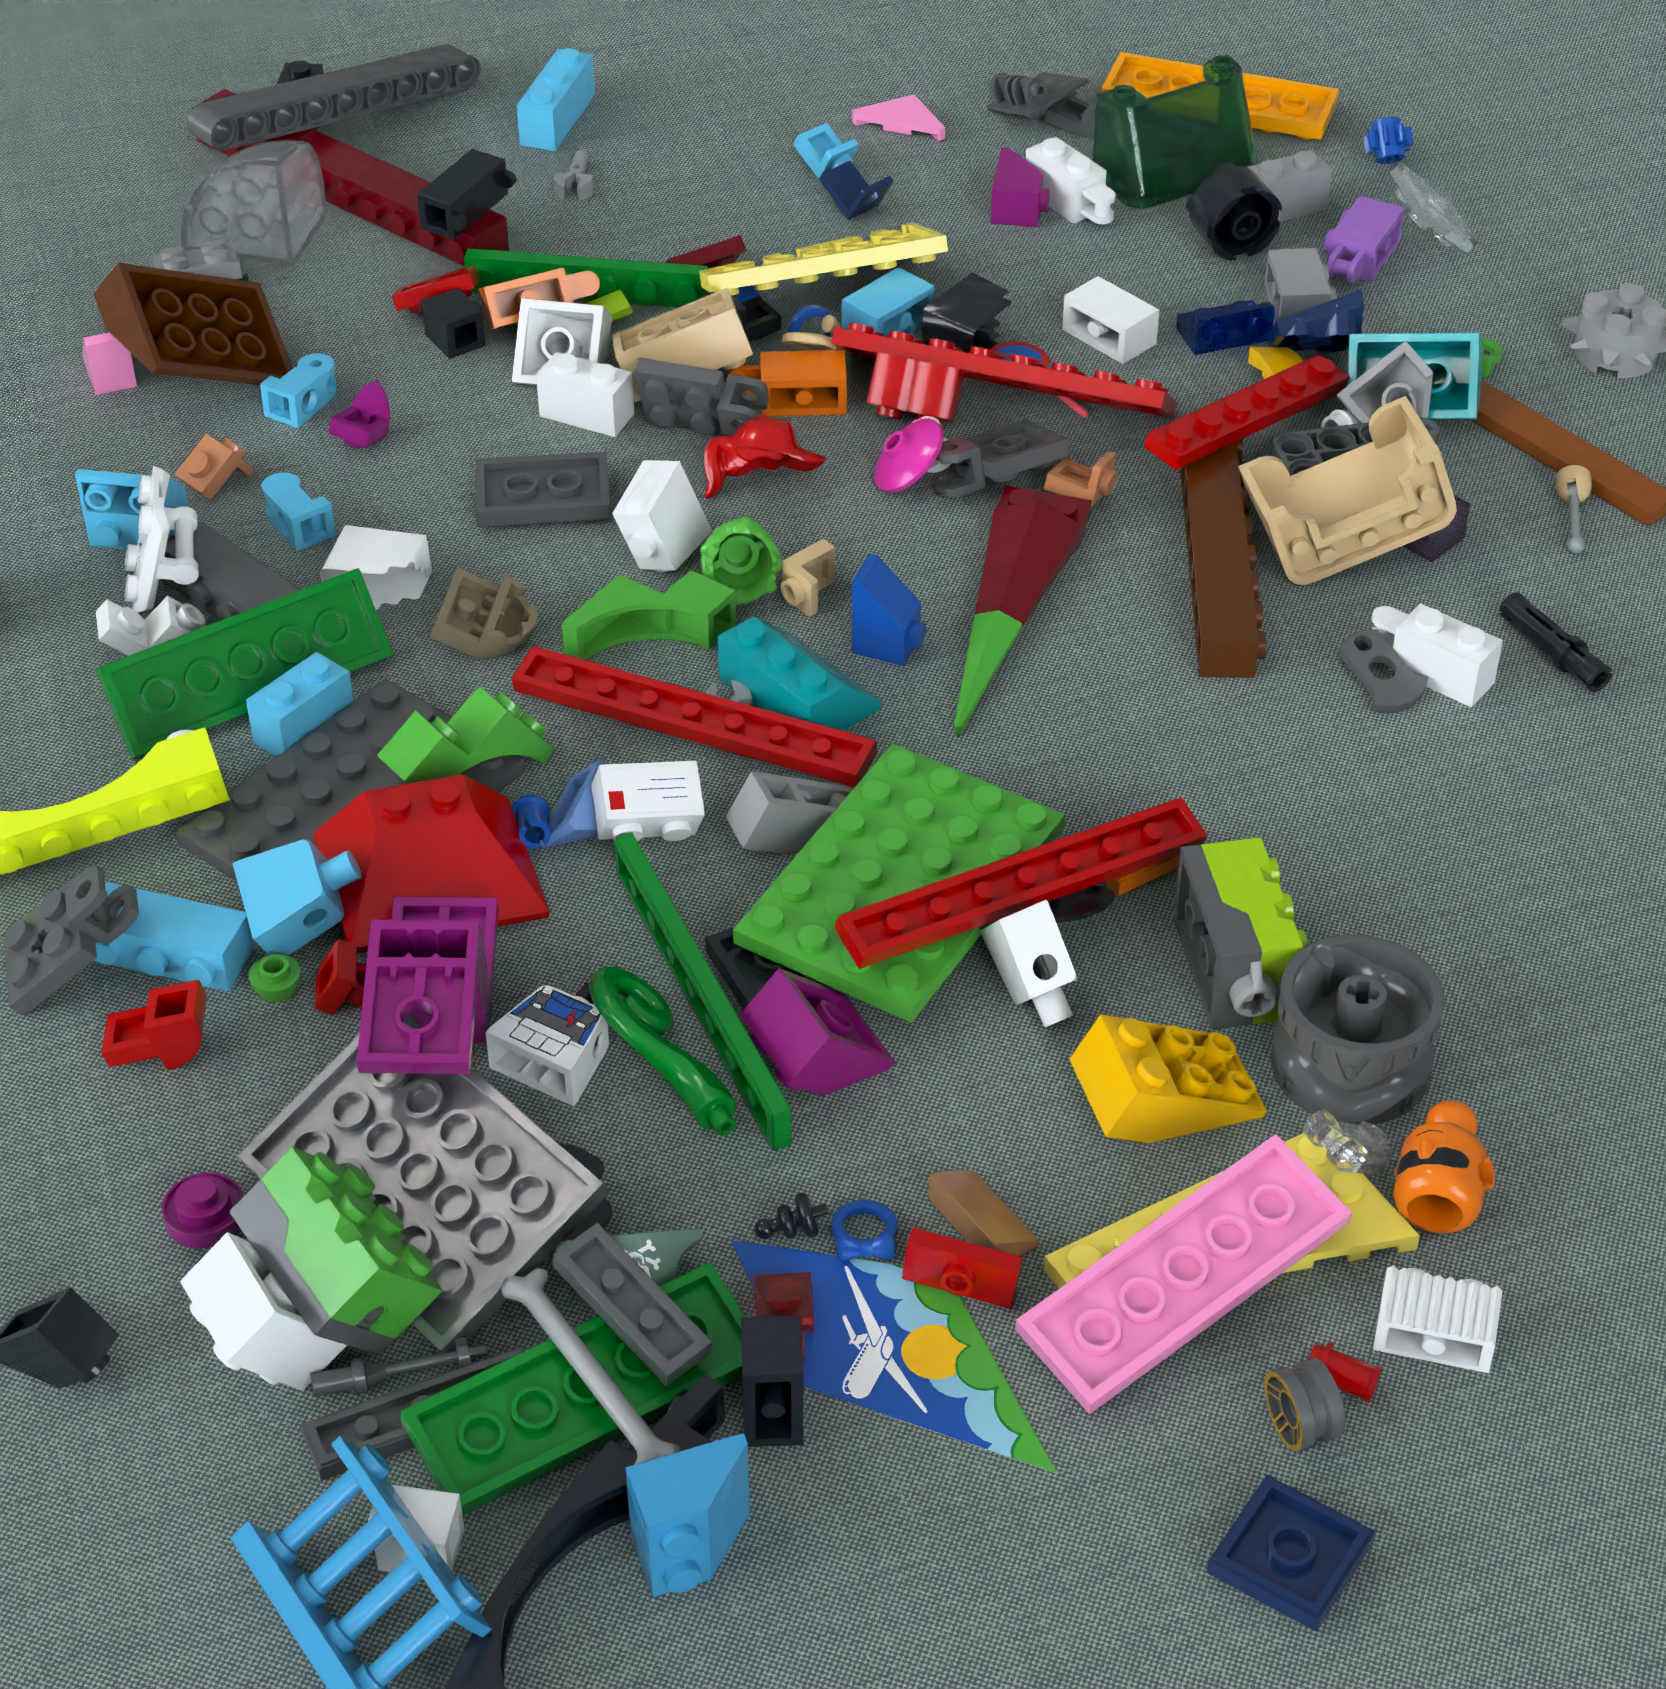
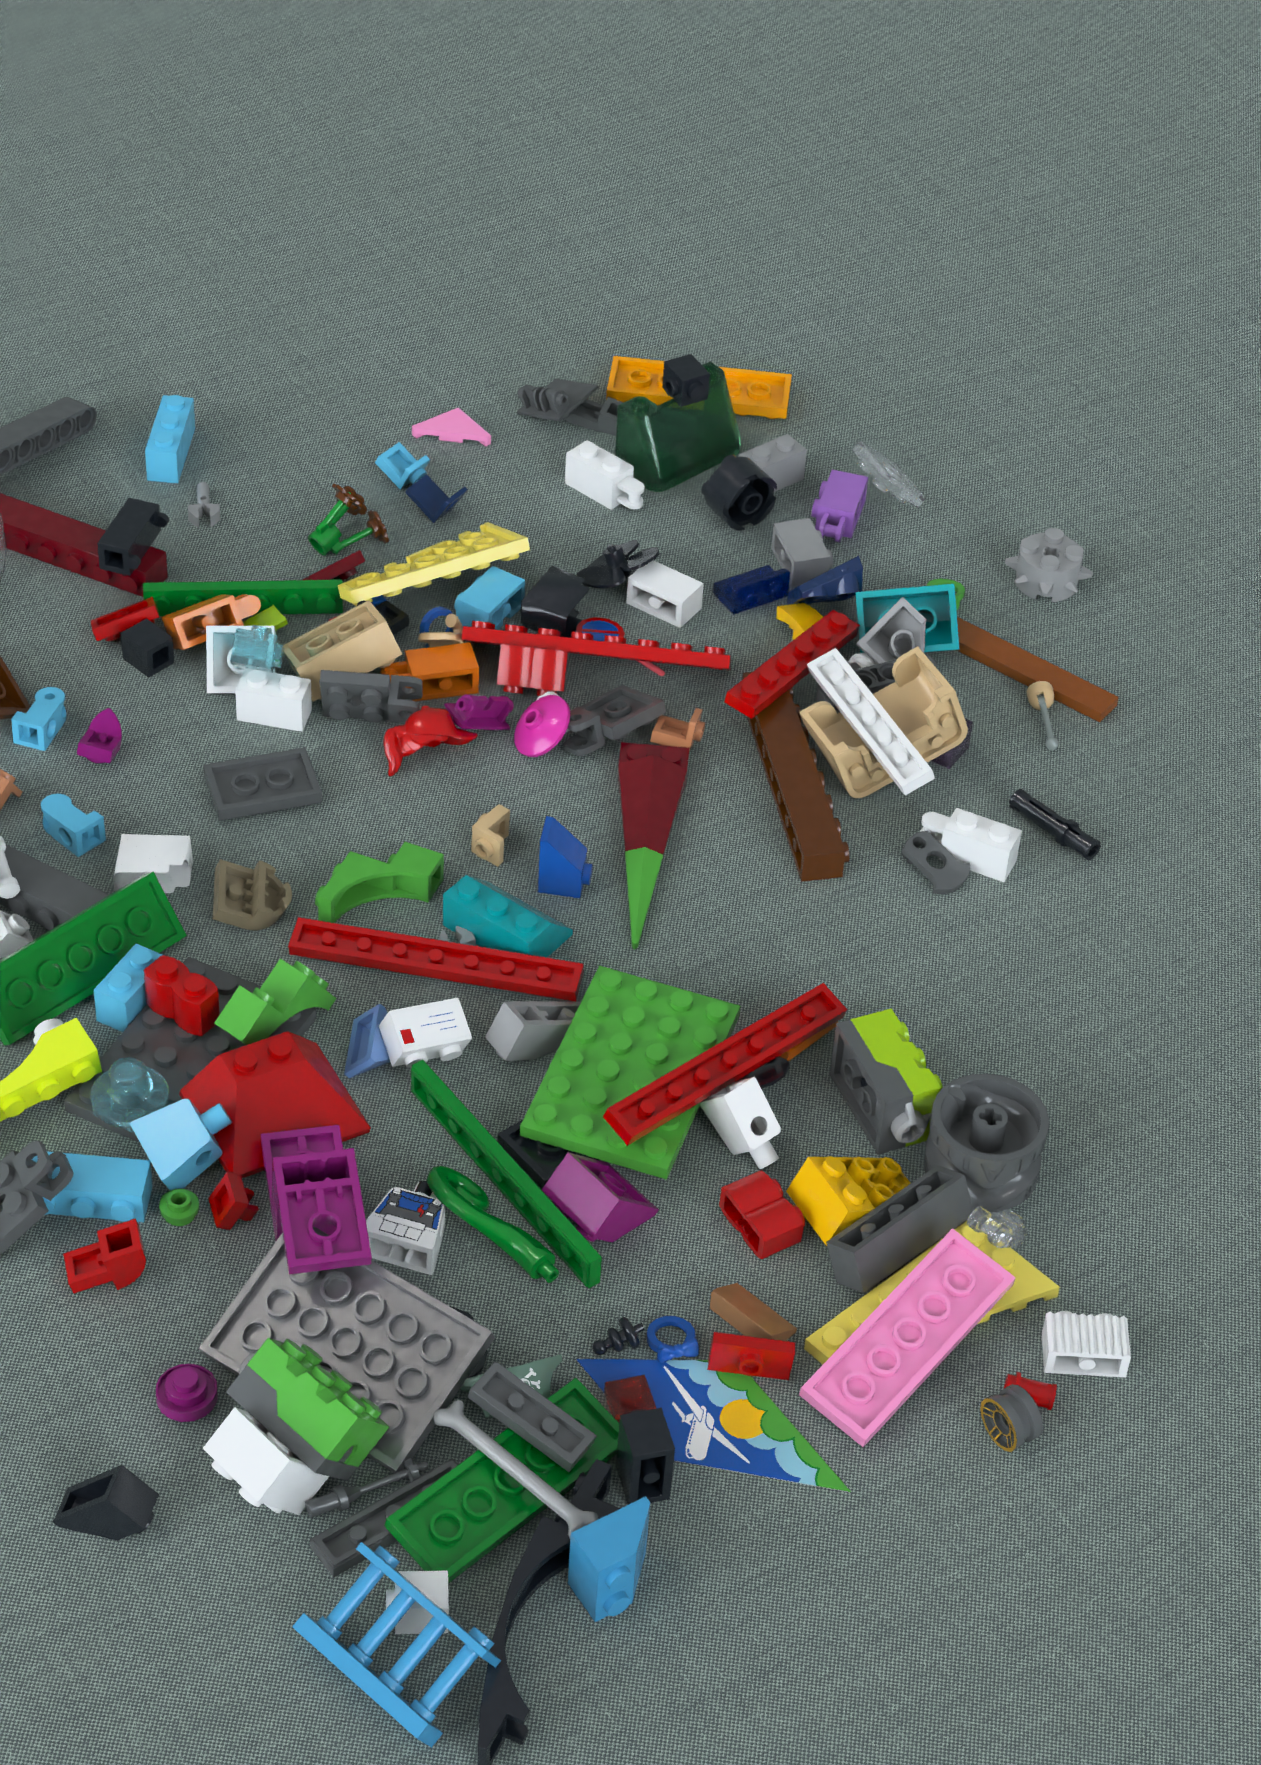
camera: 15 degrees left, 0 degrees up
(247, 824) = (128, 1093): none -> clear light blue plate
(350, 717) = (181, 995): none -> red brick
(532, 818) = (338, 1055): blue pin -> none
(570, 328) = (256, 649): none -> clear light blue brick
(661, 516) = (369, 799): white torso -> none
(710, 217) = (327, 535): none -> plant
(742, 558) = (440, 827): bright green hair -> none
(822, 431) = (481, 712): none -> magenta hinge
(1017, 192) = (564, 488): magenta slope -> none
(1029, 1084) = (762, 1214): none -> red brick
(1054, 281) = (616, 565): none -> black piece
(1186, 69) = (686, 380): none -> black brick
(1208, 1127) = (899, 1229): none -> dark grey brick
(1291, 1552) = (1024, 1521): dark blue plate -> none
(1329, 487) = (871, 721): none -> white plate
(1388, 140) = (840, 416): blue gear -> none
(1443, 1171) = (1067, 1238): orange piece -> none

